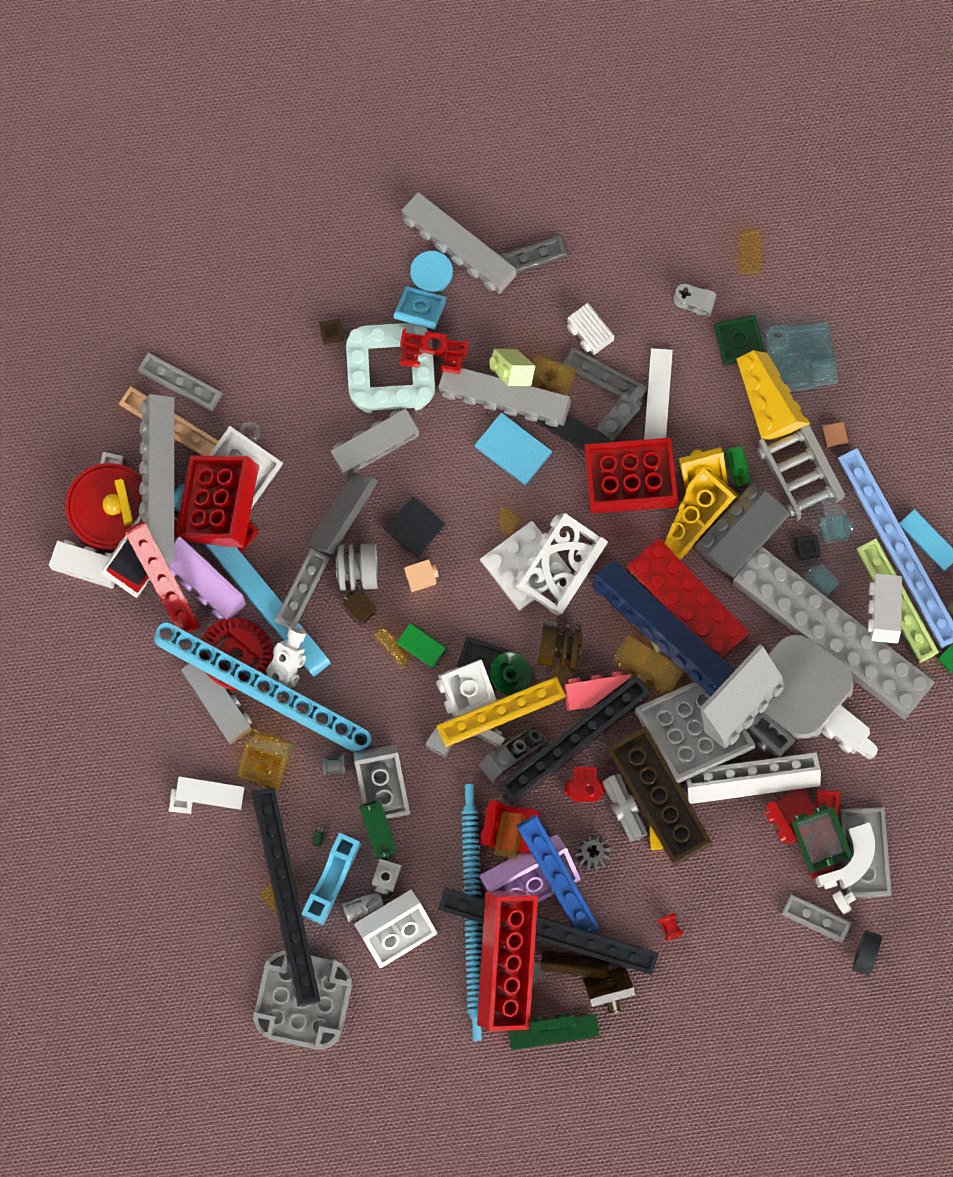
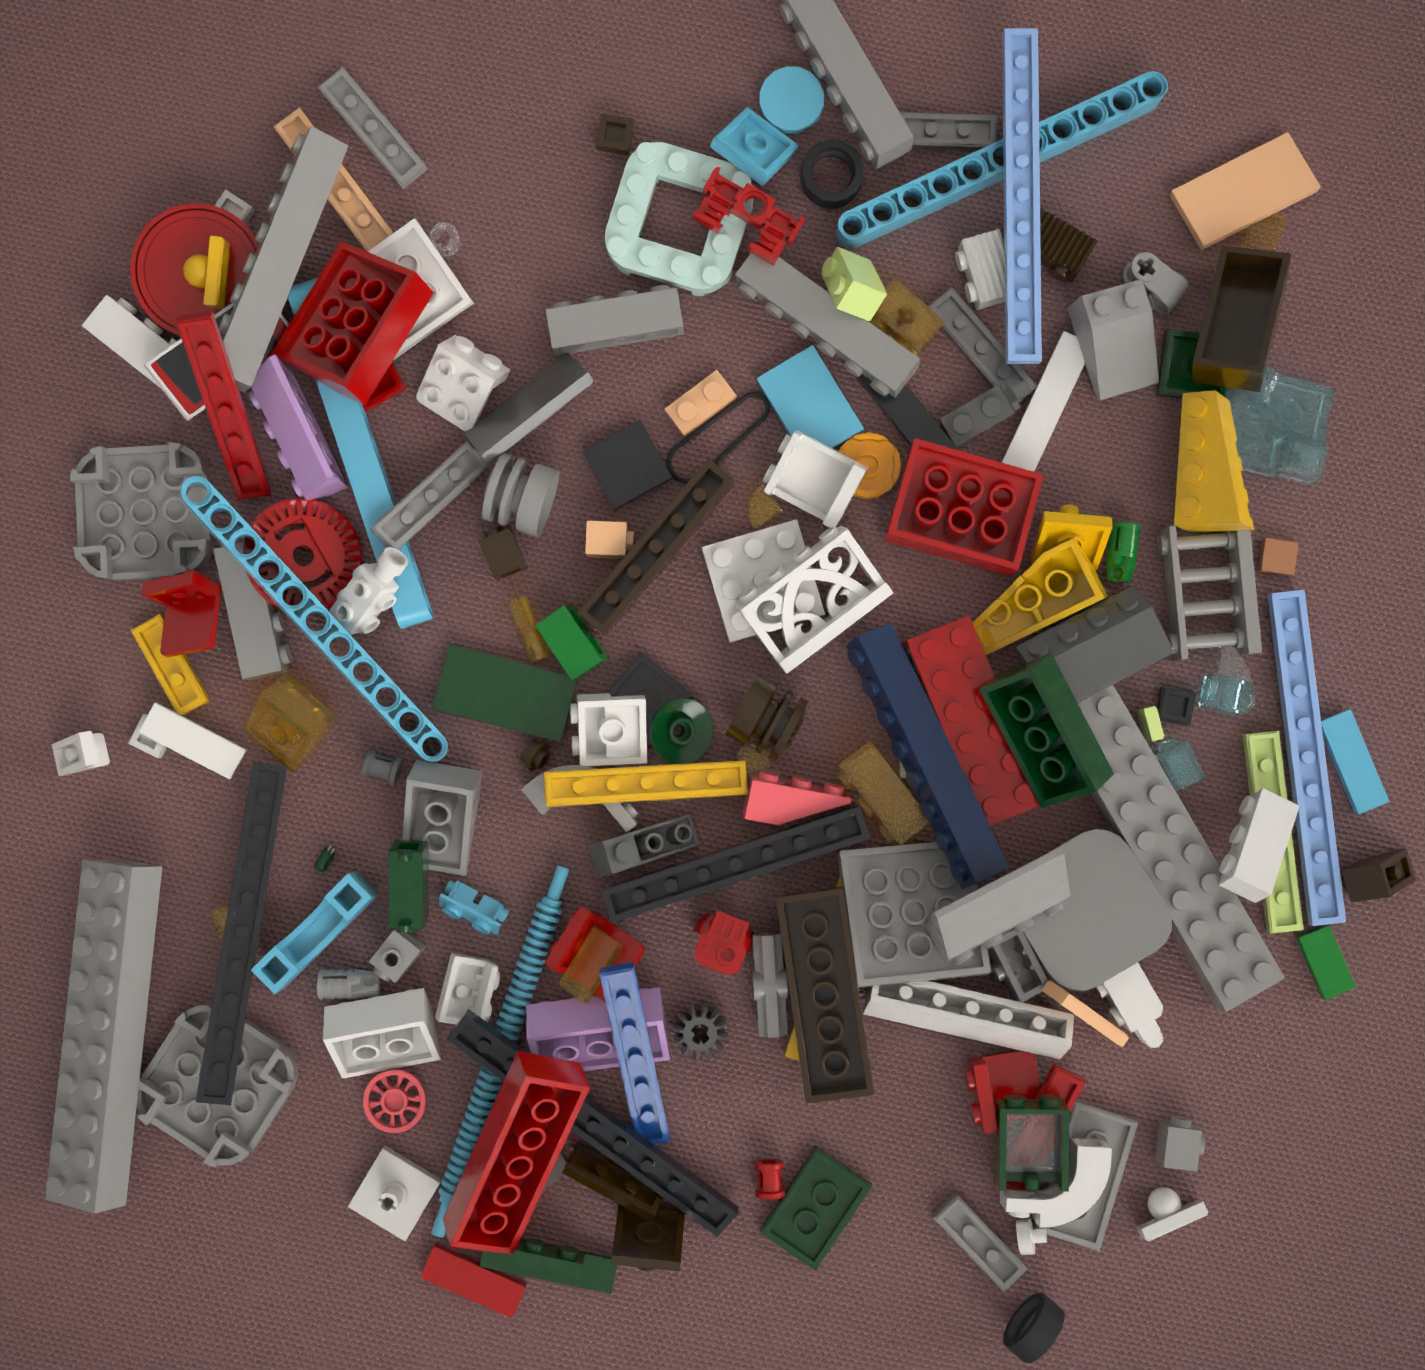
camera: 20 degrees right, 10 degrees up
(124, 666) = (135, 514): none -> light grey tile
(140, 827) = (80, 753): none -> white slope
(176, 753) = (174, 672): none -> yellow tile
(178, 713) = (190, 611): none -> red bracket
(223, 989) = (103, 1034): none -> light grey brick
(293, 514) = (460, 381): none -> white bracket
(392, 693) = (505, 693): none -> dark green tile
(412, 831) = (460, 904): none -> medium azure hinge
(418, 968) = (394, 1100): none -> coral wheel
(425, 722) = (535, 754): none -> dark brown plate
(435, 877) = (467, 986): none -> white bracket
(440, 1026) = (394, 1193): none -> white tile
(445, 473) = (700, 403): none -> light nougat plate
(452, 569) = (656, 547): none -> dark brown brick
(473, 291) = (837, 149): none -> black tyre
(474, 493) = (713, 420): none -> black piece
(510, 1061) = (473, 1282): none -> red tile
(533, 491) = (814, 477): none -> white panel
(563, 473) = (879, 457): none -> light orange tile
(575, 252) = (989, 172): none -> medium azure beam
(593, 279) = (1021, 196): none -> light blue plate
(626, 300) = (1063, 247): none -> dark brown brick
(684, 341) = (1116, 339): none -> light grey slope
(706, 936) = (815, 1208): none -> dark green tile
(728, 225) = (1244, 191): none -> light nougat tile
(730, 586) = (1046, 731): none -> dark green brick
(753, 302) = (1241, 318): none -> dark brown piece
(795, 562) = (1150, 723): none -> yellowish green tile
(822, 749) = (1085, 1013): none -> light nougat tile
(914, 809) = (1179, 1144): none -> light grey brick
(924, 855) = (1169, 1213): none -> white tile

